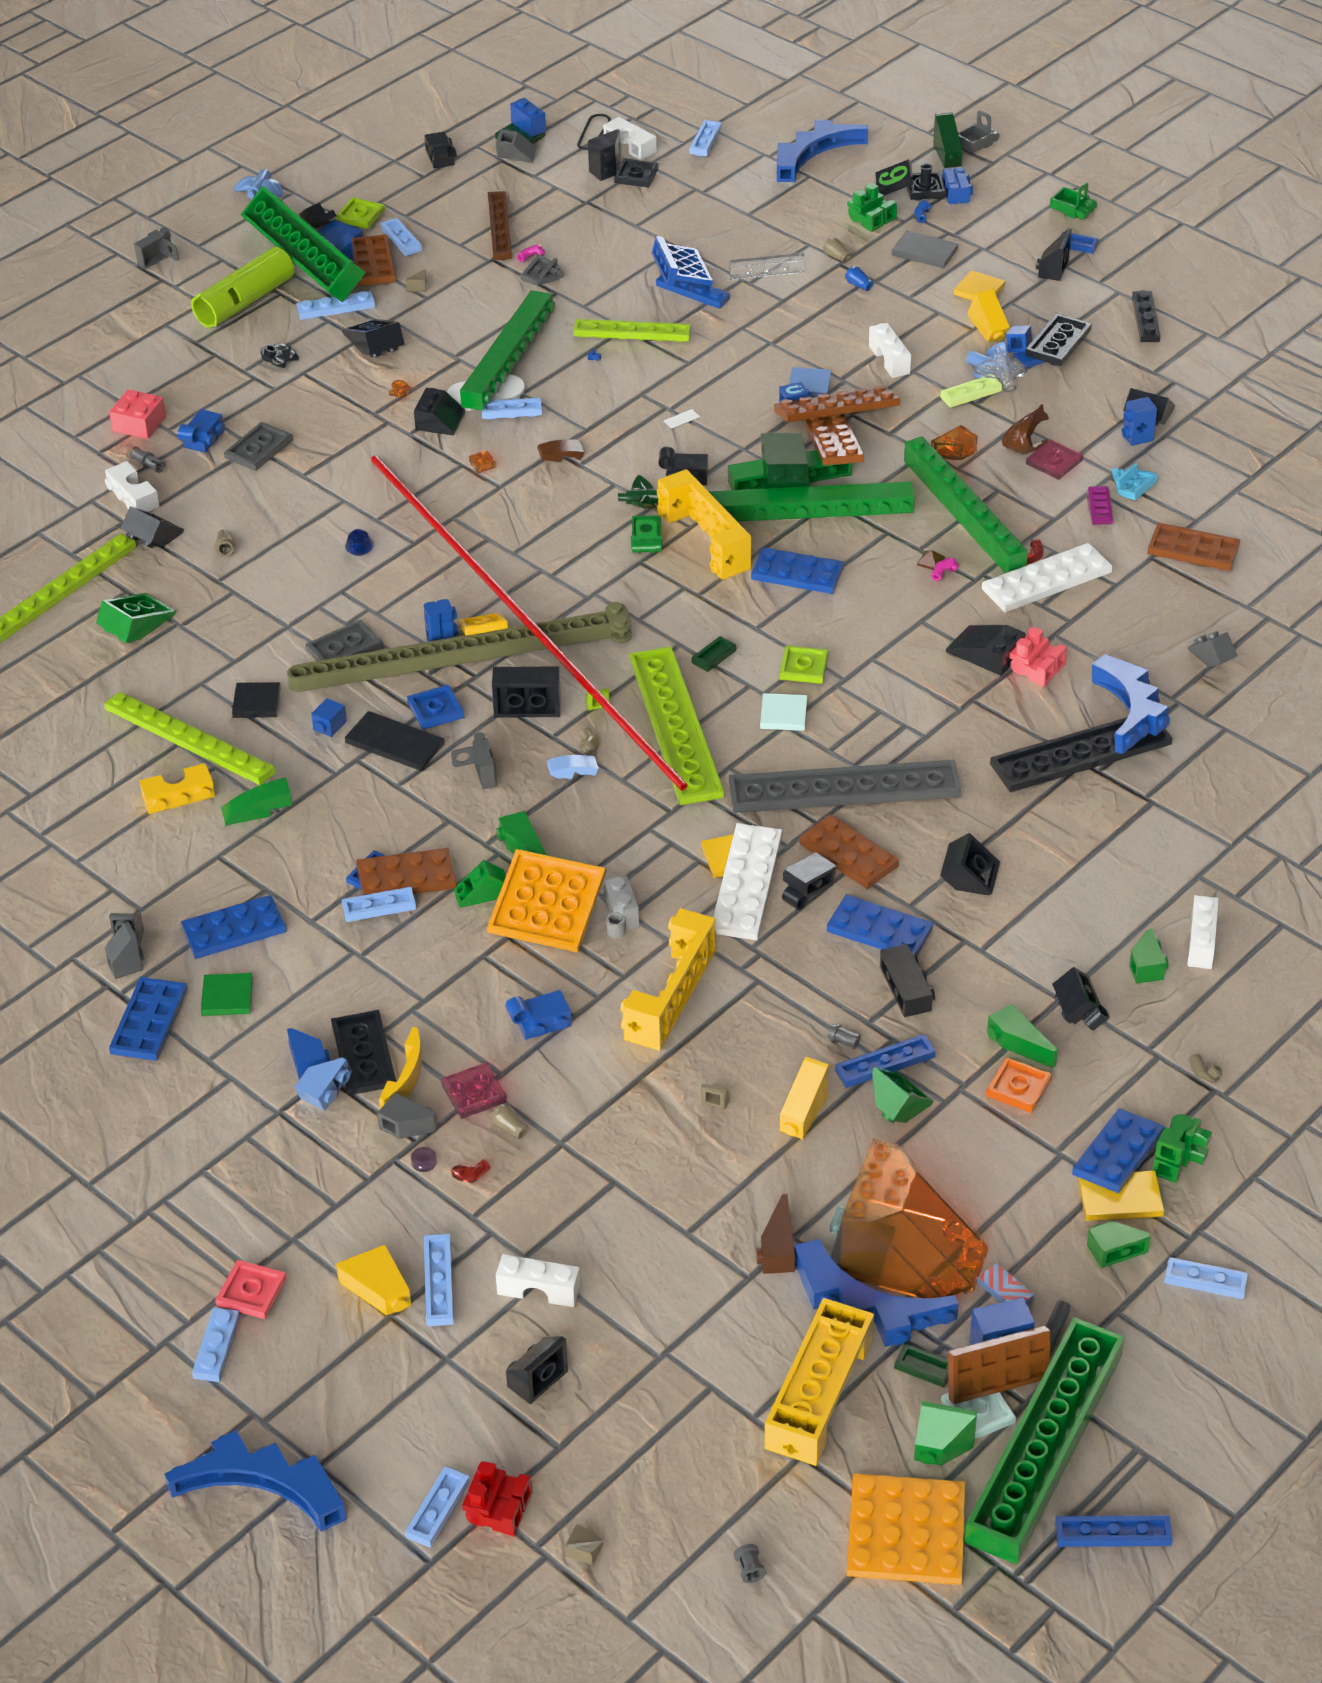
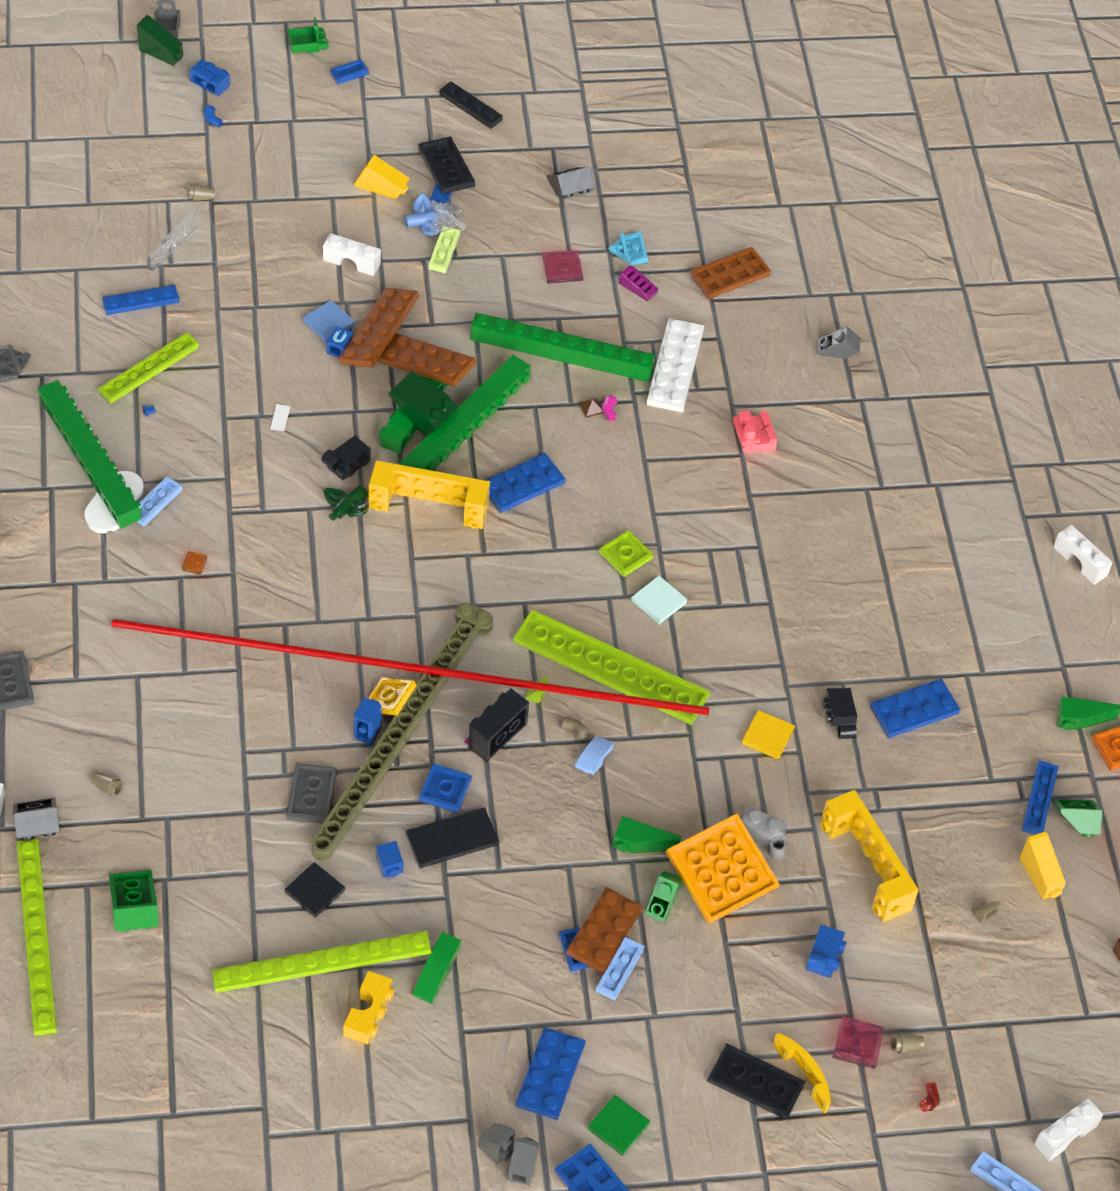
camera: 55 degrees left, 10 degrees up
(306, 1051) = (732, 1117): blue slope -> none
(323, 1081) = (774, 1127): medium blue slope -> none
(358, 543) = (205, 703): clear blue cone -> none
(399, 388) = (47, 544): clear orange plate -> none
(406, 1118) = (849, 1100): dark grey slope -> none
(423, 1159) = (892, 1117): clear purple tile -> none
(438, 412) = (108, 547): black slope -> none
(482, 756) = (539, 802): dark grey piece -> none
(557, 449) = (237, 509): reddish brown slope -> none
(646, 534) = (393, 533): green piece -> none
(679, 263) = (107, 289): blue fence -> none
(713, 654) = (558, 592): dark green tile -> none
(747, 881) = (807, 745): white plate -> none
(809, 144) = (53, 110): blue arch -> none
(844, 786) = (767, 626): dark grey plate -> none
(844, 1036) = (998, 802): dark grey pin -> none
(849, 851) = (829, 669): dark orange plate -> none
(858, 278) = (248, 207): blue cone -> none
(871, 208) = (179, 139): green hips -> none
(894, 177) = (159, 100): black tile -> none
(906, 980) = (981, 732): black brick -> none
(925, 249) = (256, 148): tile -> none
(927, 184) = (186, 91): black plate -> none
(956, 444) = (494, 299): clear orange slope -> none
(970, 866) = (910, 620): black slope -> none
(977, 282) = (335, 156): yellow tile -> none
(987, 646) = (713, 446): black slope -> none
(1018, 338) = (424, 182): blue brick -> none
(1019, 435) = (524, 265): reddish brown hair -> none
(1036, 552) = (644, 346): clear red arm -> none
(1055, 258) = (363, 95): black slope -> none
(1068, 755) = (861, 482): black plate -> none
(1079, 999) = (1085, 660): black hinge -> none
(1139, 421) = (587, 197): blue brick -> none
(1141, 699) = (831, 409): arch -> none
(1147, 960) = (1077, 598): green slope -> none

